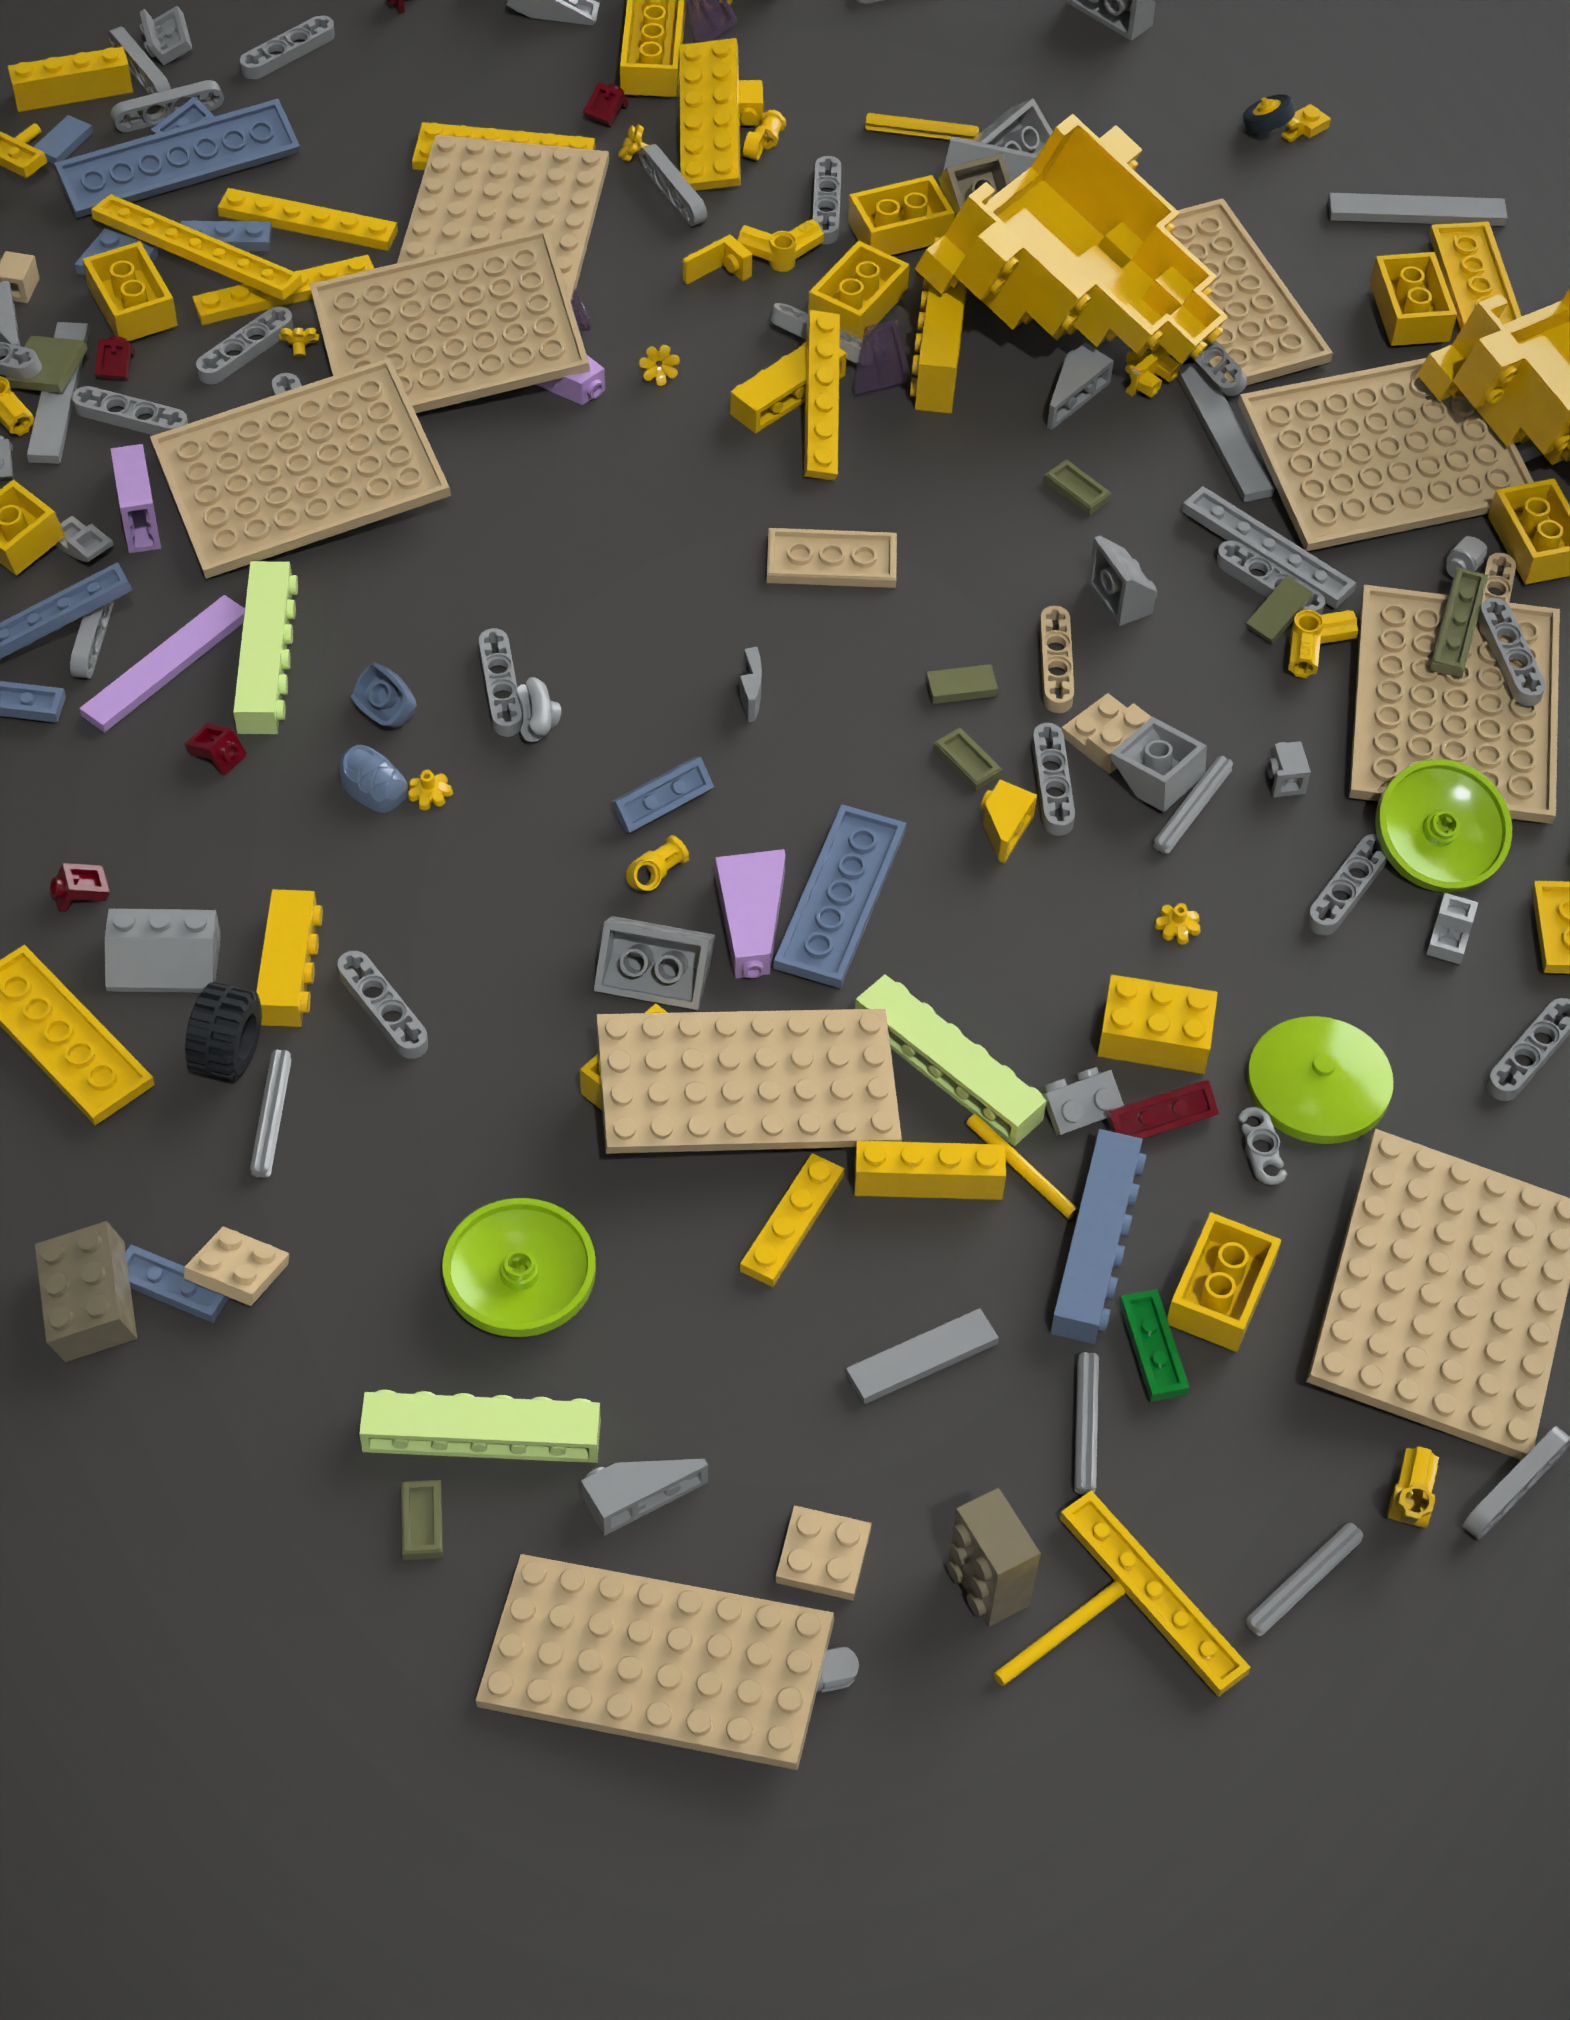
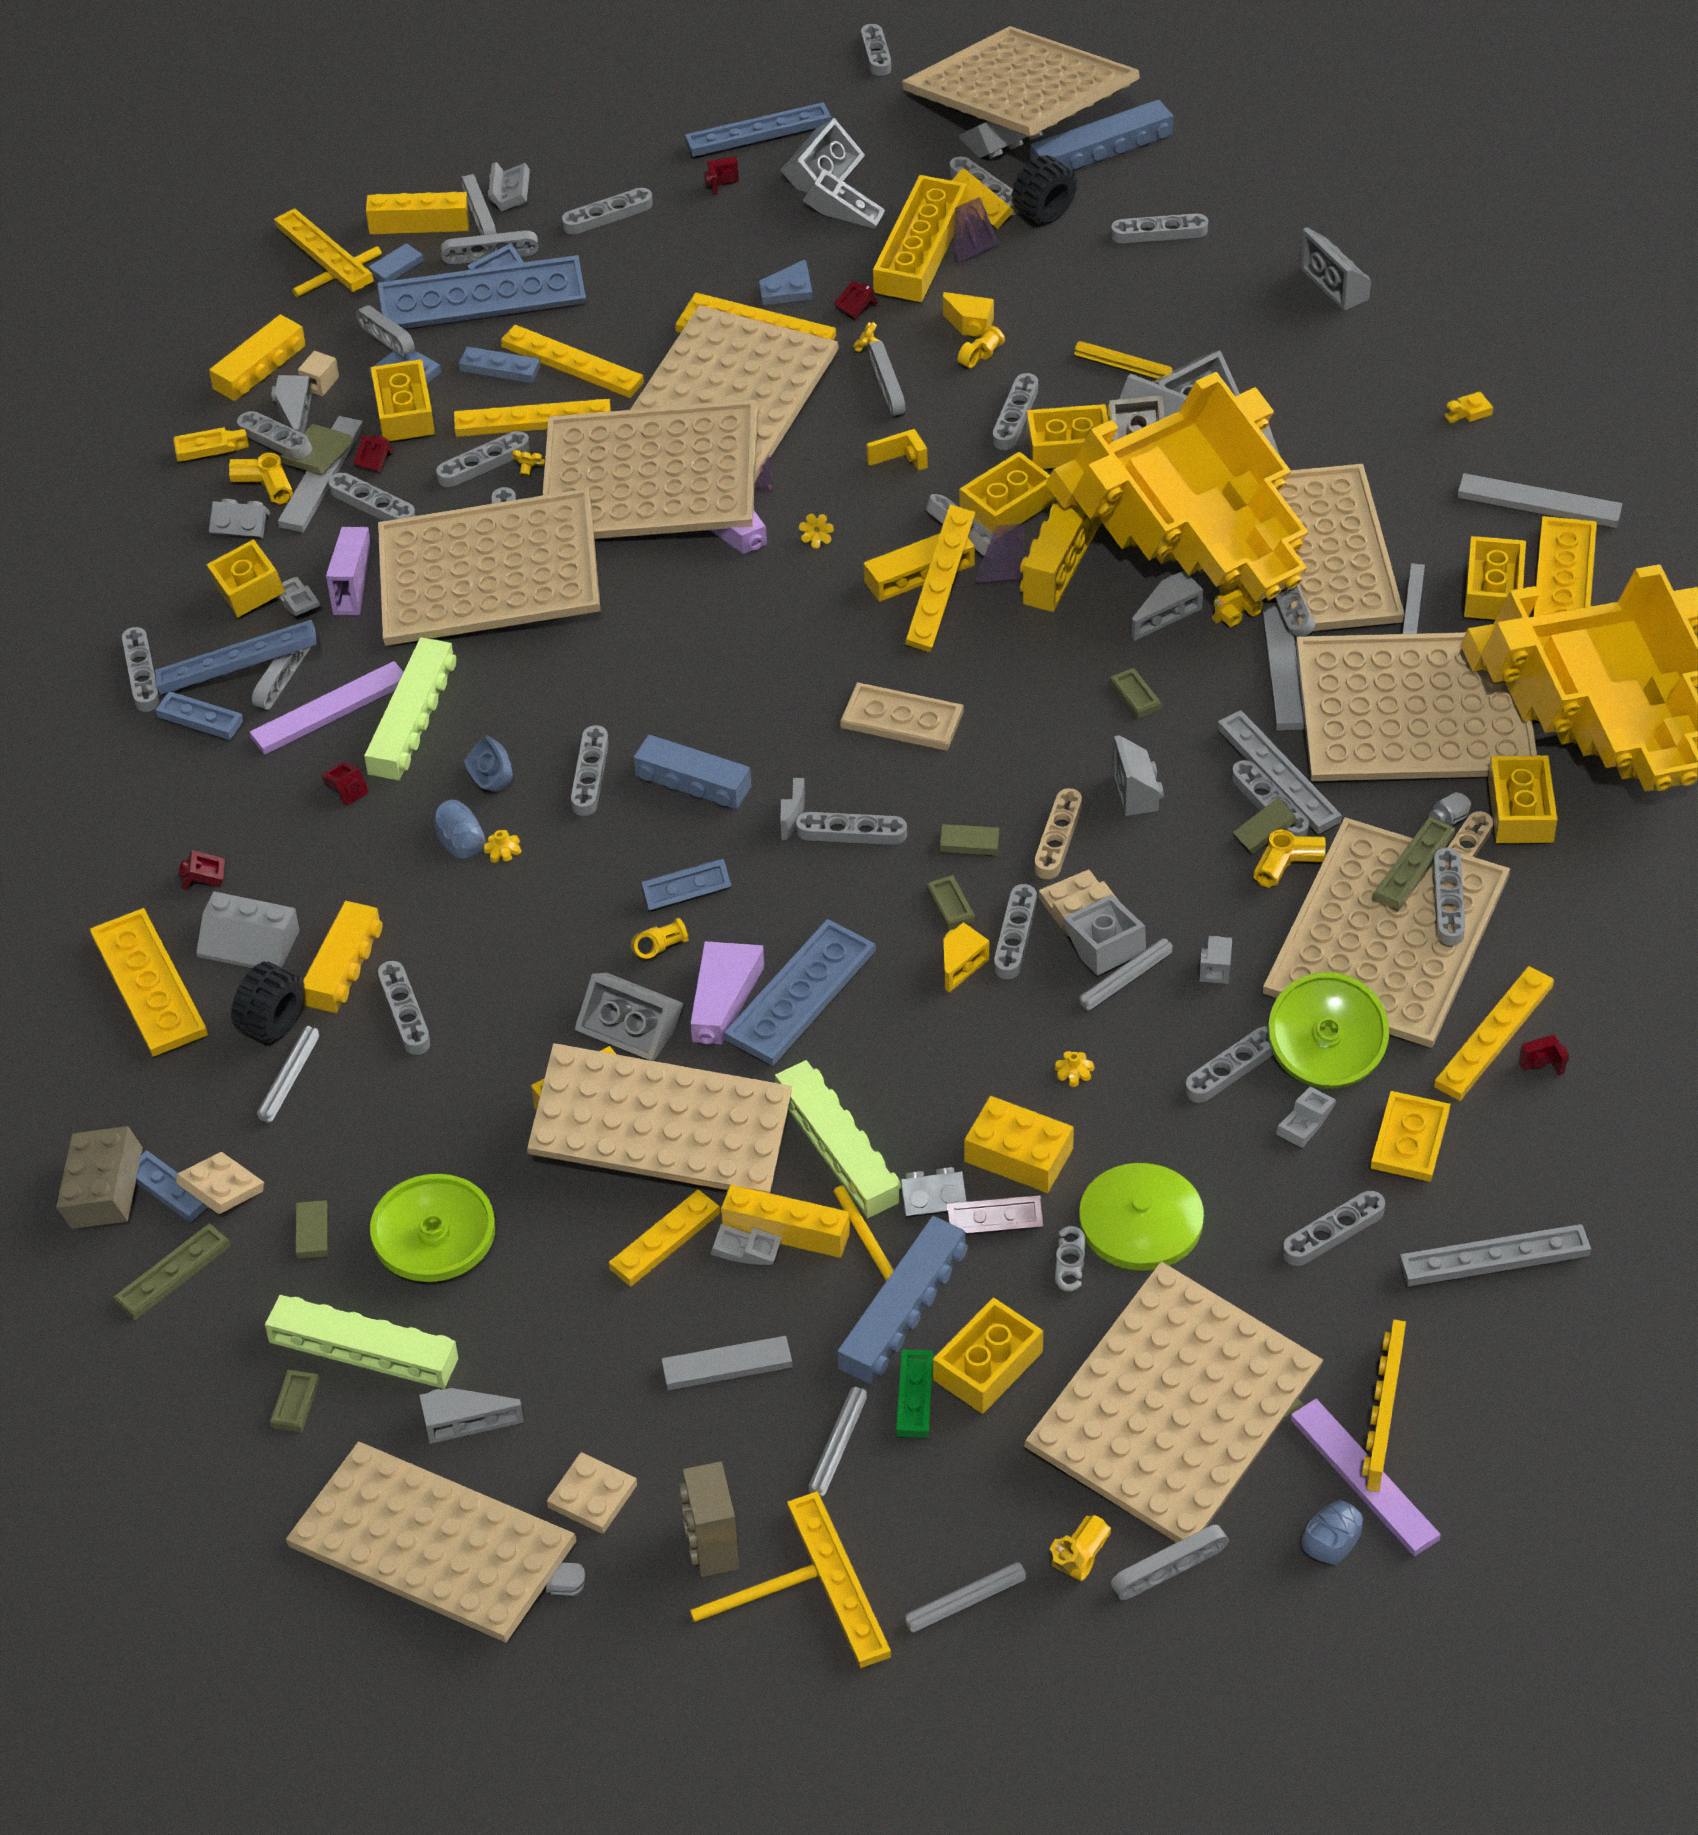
camera: 20 degrees right, 5 degrees down
(81, 216) = (385, 330): none -> light grey beam
(197, 247) = (472, 372): yellow plate -> none
(211, 1390) = (171, 1271): none -> olive tile
(367, 1299) = (312, 1229): none -> olive tile
(521, 100) = (787, 285): none -> sand blue wing
(538, 711) = (608, 798): light grey piece -> none
(621, 662) = (692, 771): none -> sand blue brick
(710, 114) = (937, 322): yellow plate -> none
(782, 246) = (957, 446): yellow piece -> none
(823, 689) = (851, 832): none -> light grey beam
(891, 1211) = (750, 1248): none -> light grey slope
(1269, 113) = (1435, 394): black wheel -> none
(1334, 335) = (1413, 598): none -> light grey beam

